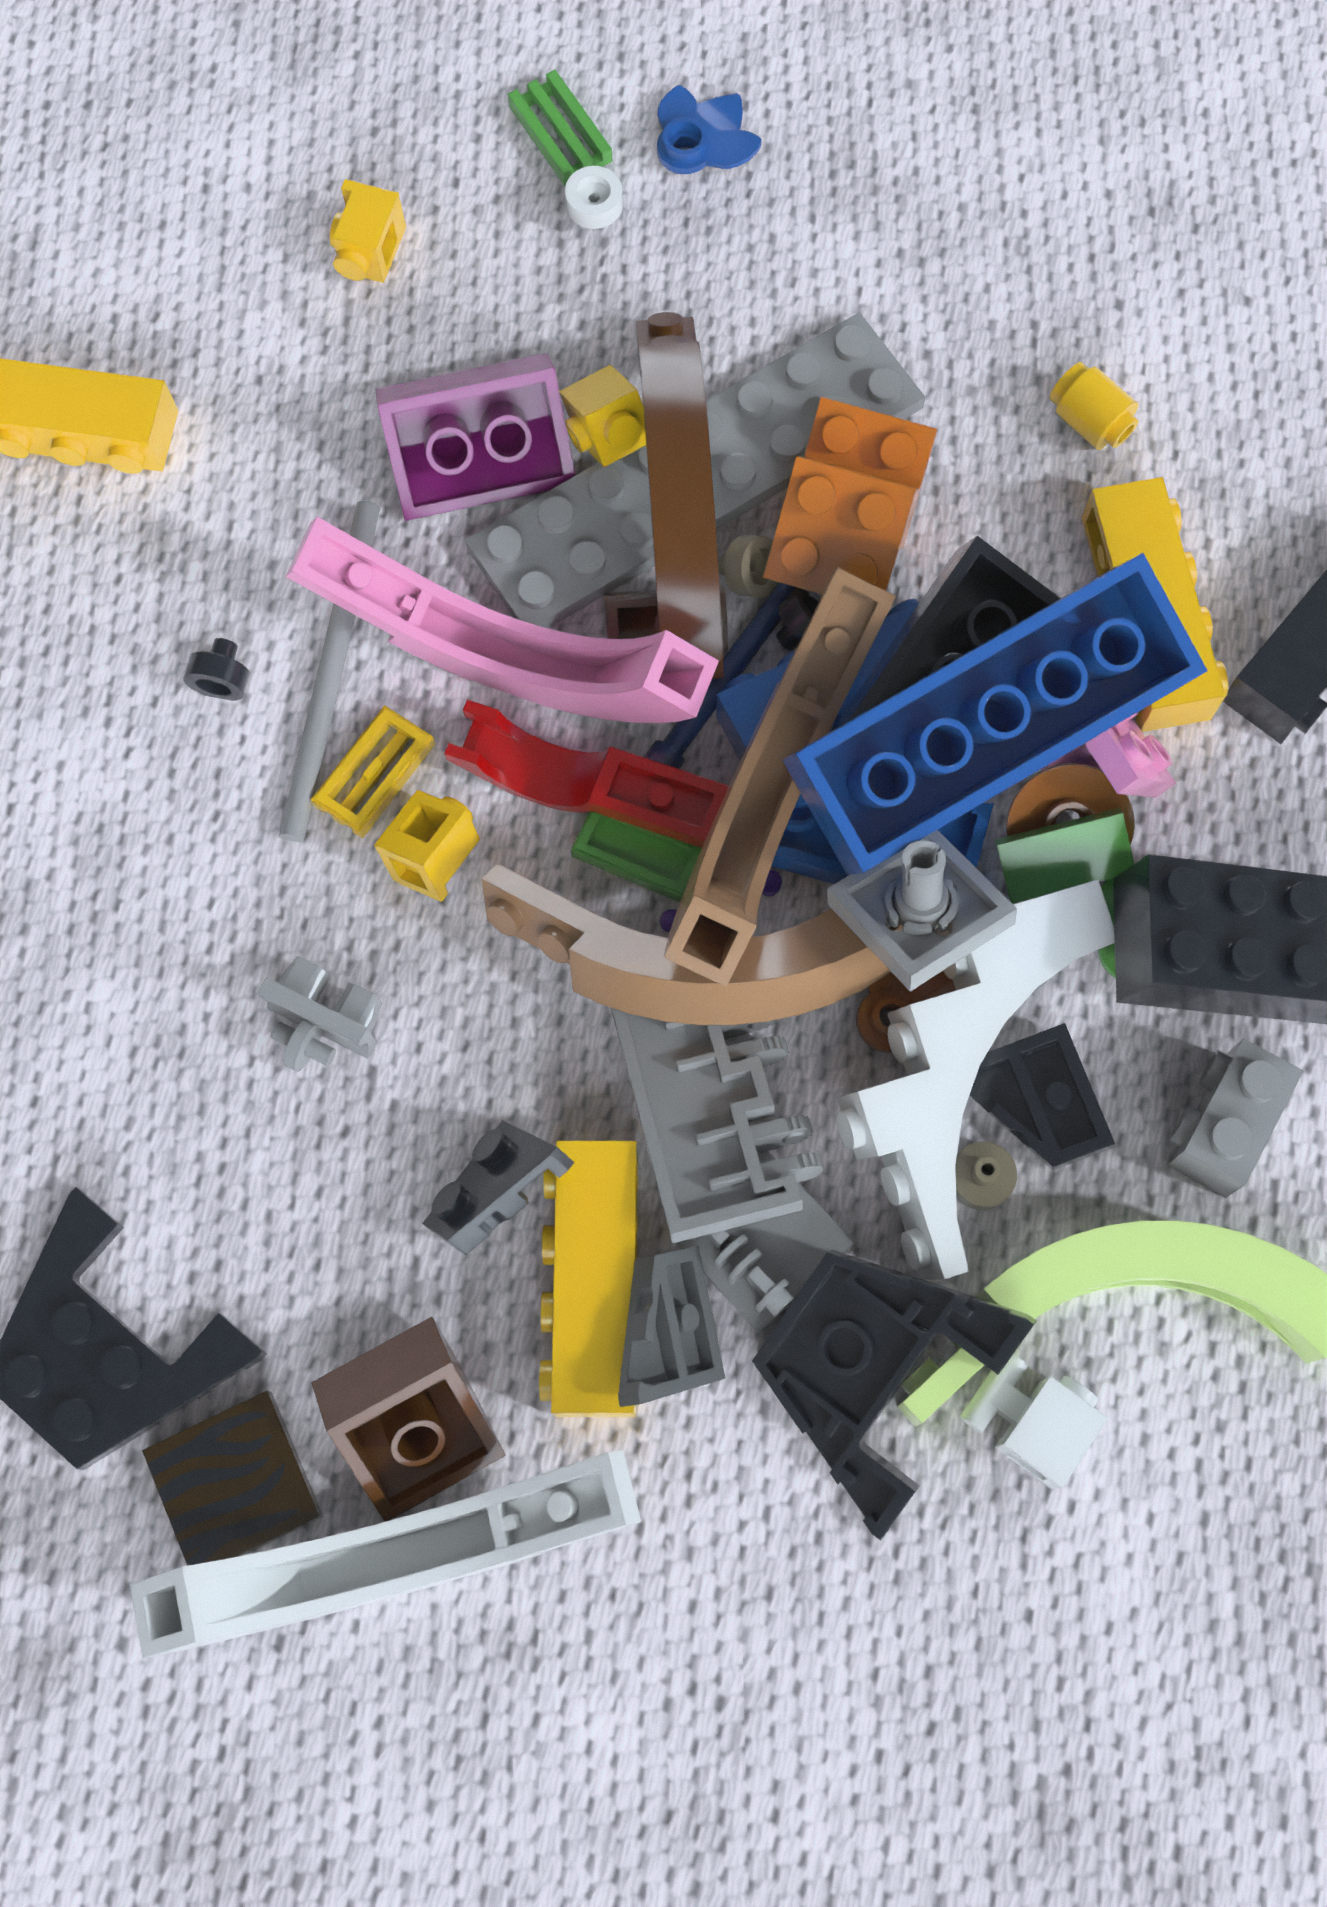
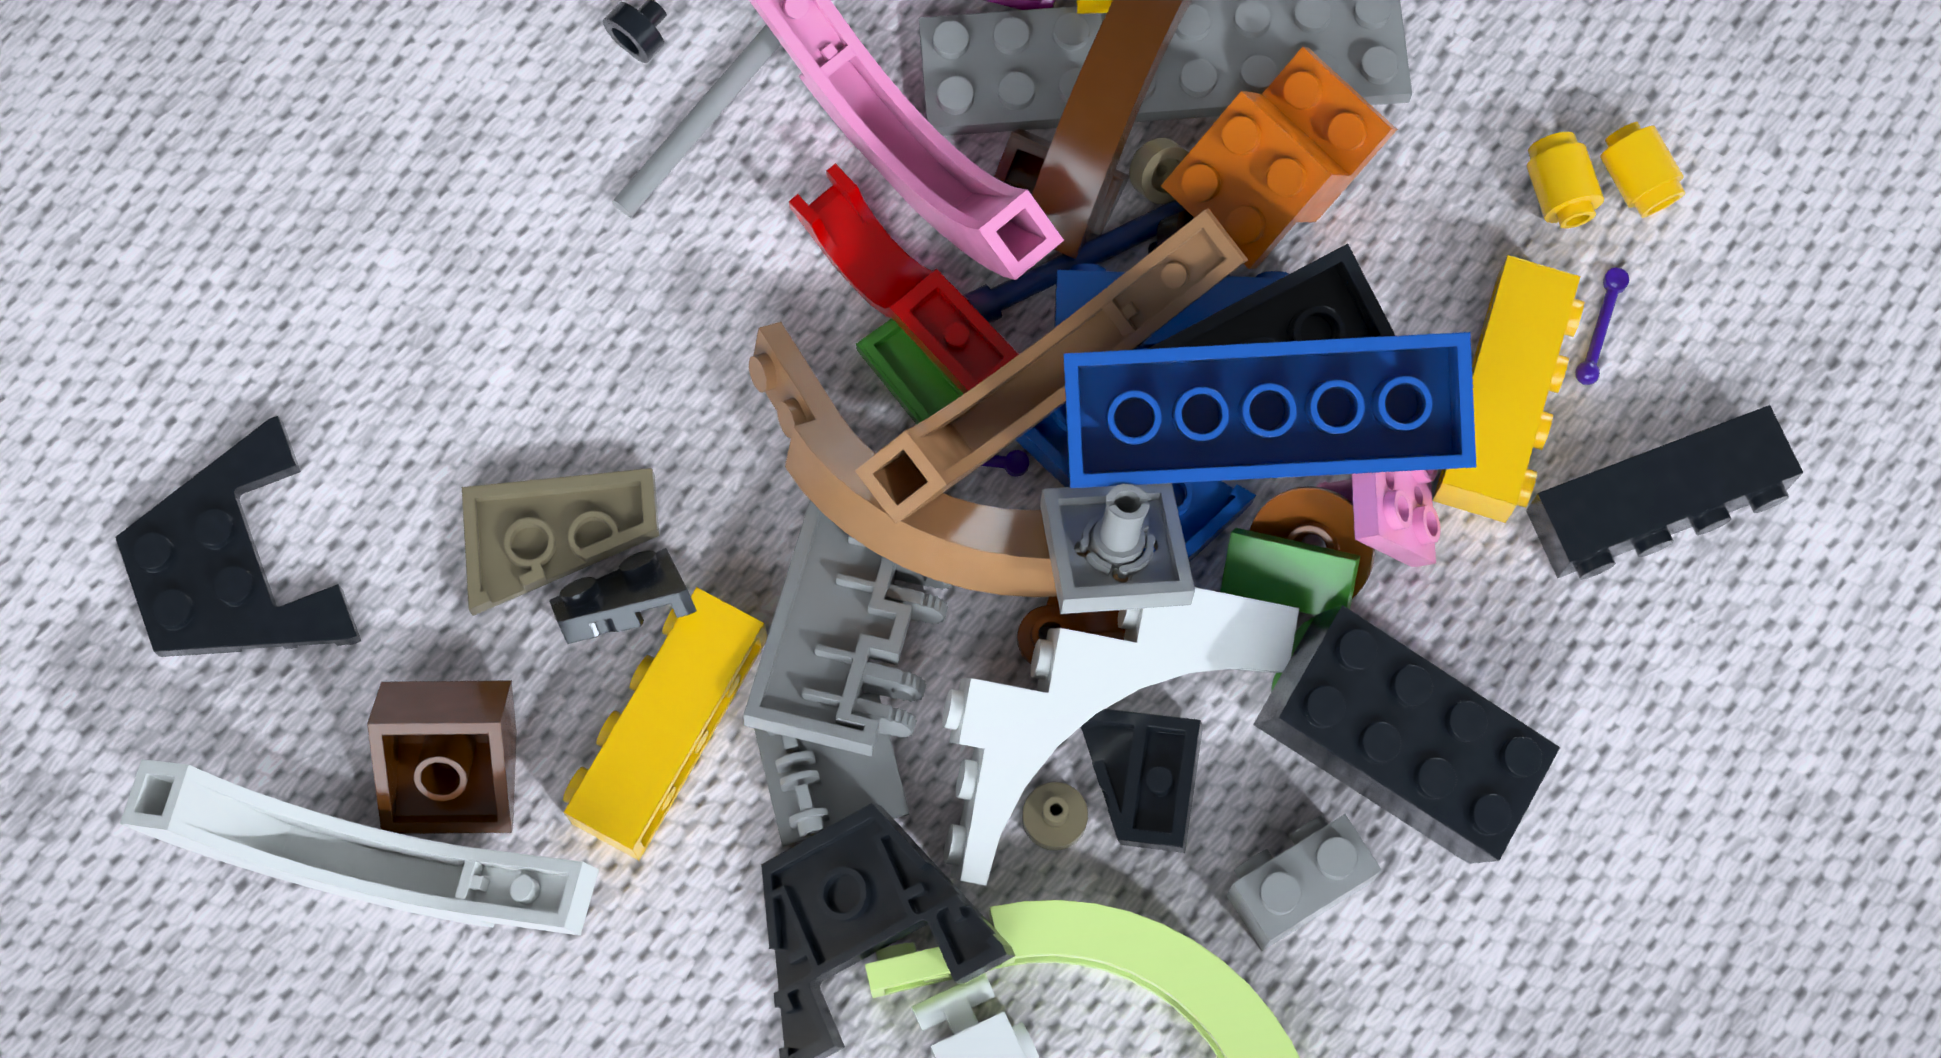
camera: 25 degrees right, 0 degrees up
(232, 1482) = (276, 730): dark brown tile -> none
(296, 999) = (548, 350): light grey hips -> none
(387, 1159) = (550, 528): none -> dark tan wing
(392, 784) = (735, 205): yellow tile -> none
(427, 843) = (734, 273): yellow brick -> none
(669, 1329) = (703, 797): dark grey wing -> none
(1152, 365) = (1643, 168): none -> yellow brick
(1181, 473) = (1614, 282): none -> dark purple hinge

